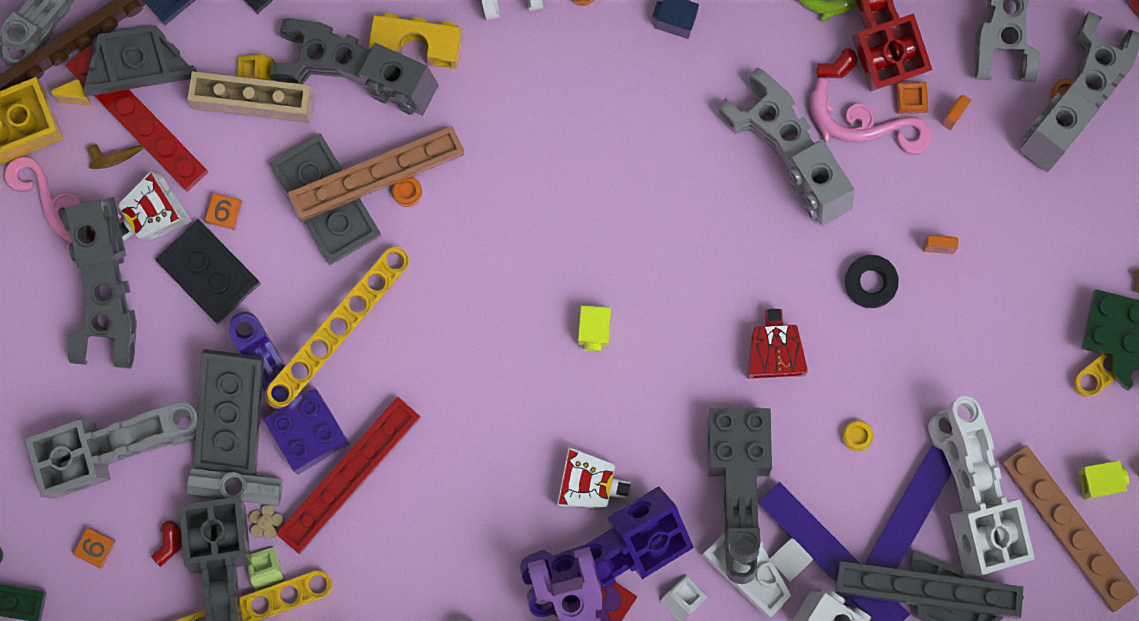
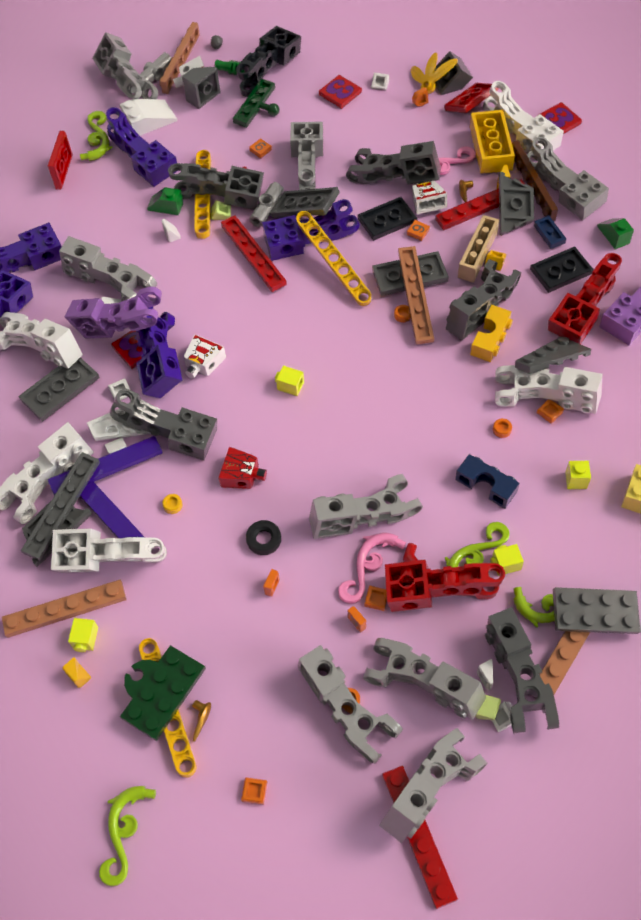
camera: 110 degrees right, 20 degrees down
(265, 522) = (243, 216): tan plant -> none

